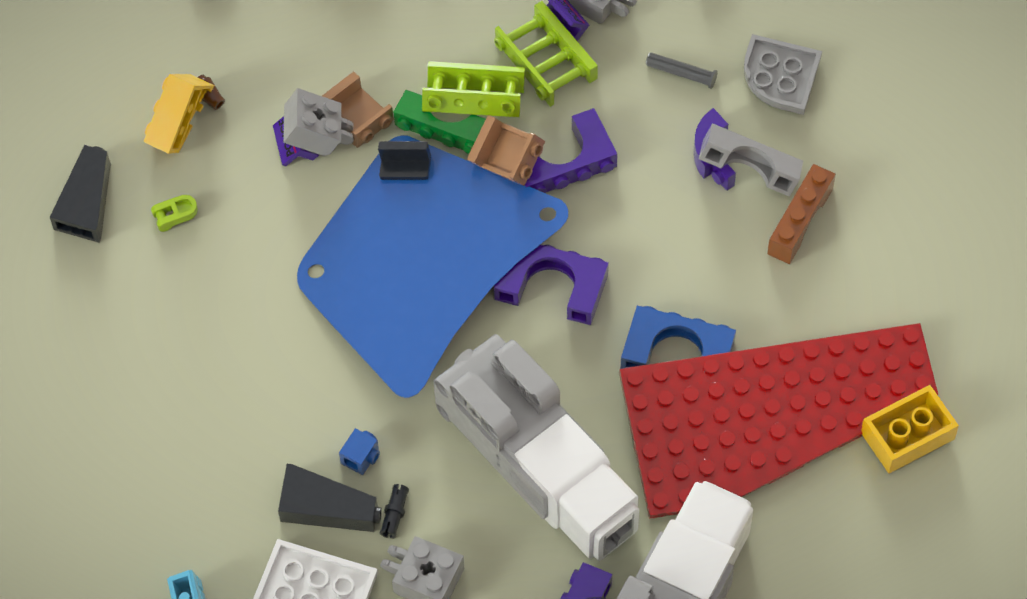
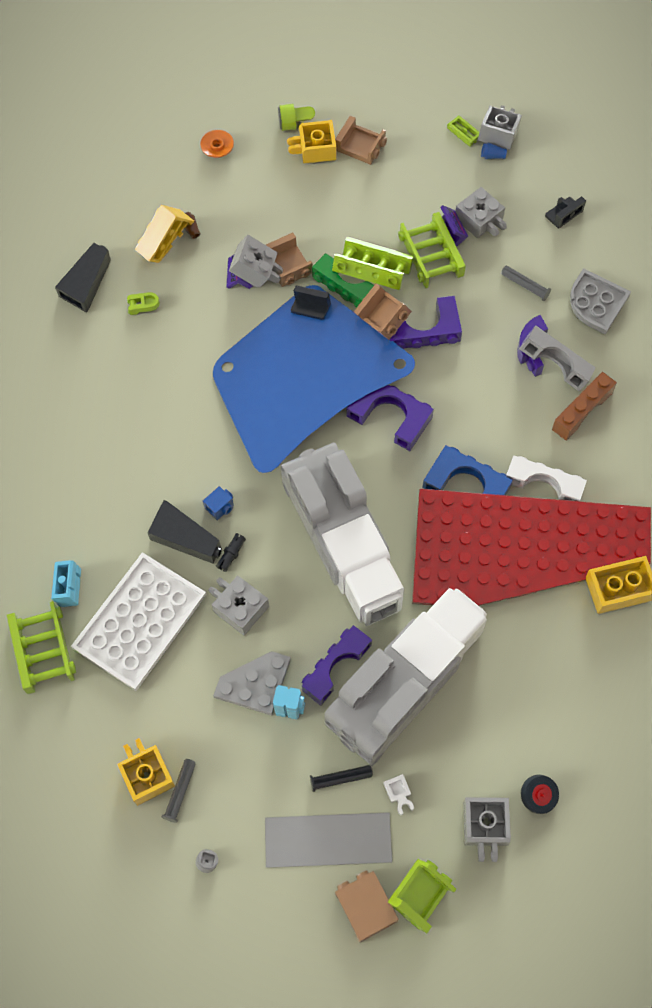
camera: 15 degrees right, 5 degrees up
(750, 315) = (524, 471): none -> white arch

